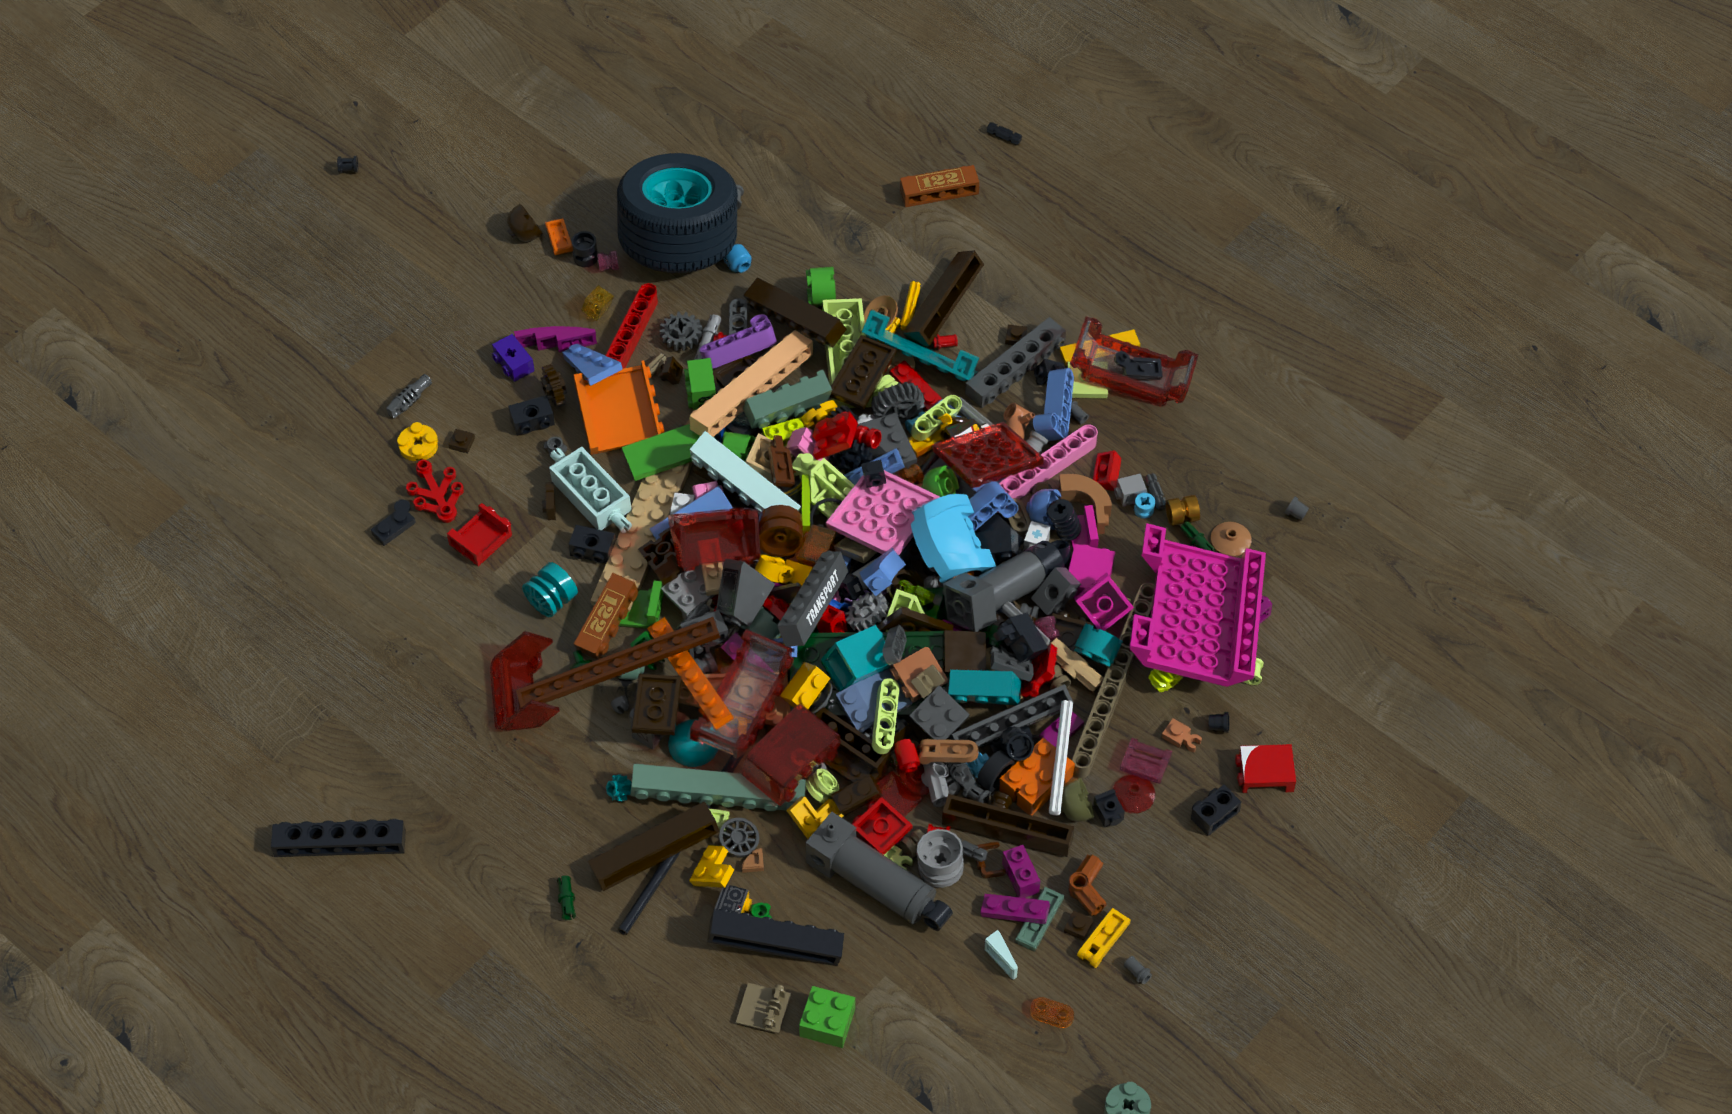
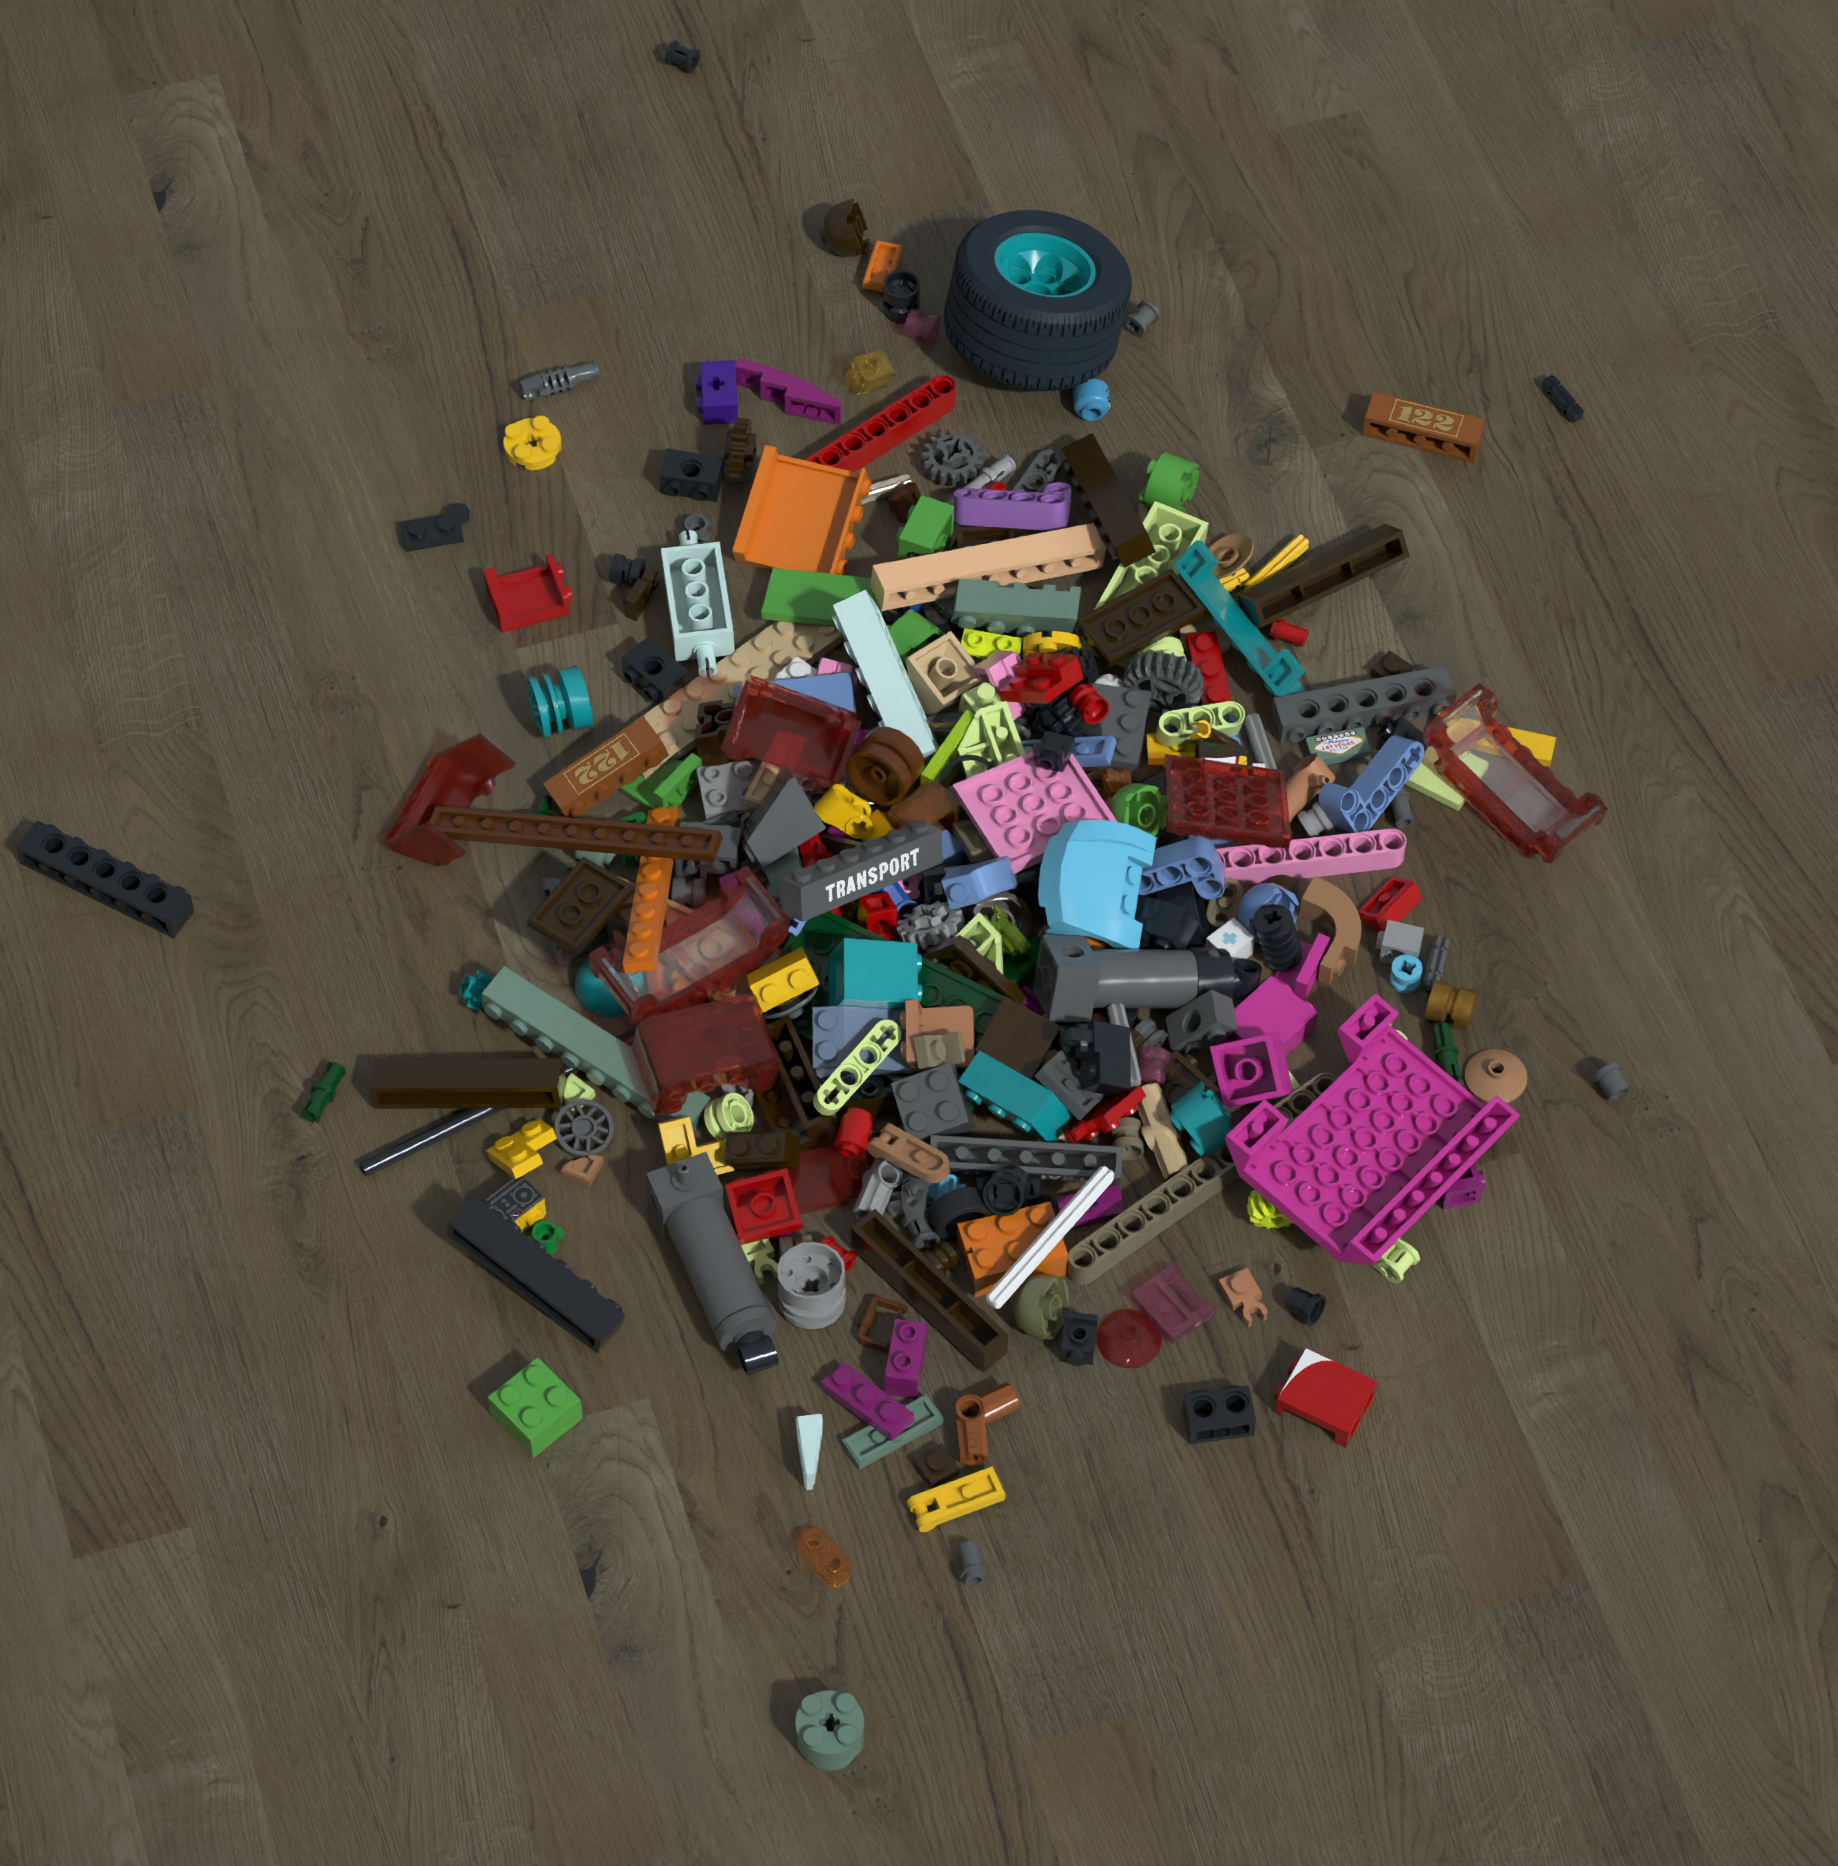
camera: 30 degrees right, 0 degrees up
(436, 493) = (512, 515): red plant -> none
(461, 441) = (587, 467): dark brown plate -> none
(532, 491) = (626, 569): none -> black wheel
(591, 363) = (803, 443): medium blue wing -> none
(763, 1007) = (468, 1354): dark tan hinge -> none
(780, 463) = (951, 683): reddish brown hinge -> none
(894, 645) = (914, 980): dark grey beam -> none
(972, 850) = (860, 1294): dark grey axle -> none
(1017, 392) = (1339, 745): none -> tile
(1139, 367) = (1521, 788): black hinge -> none

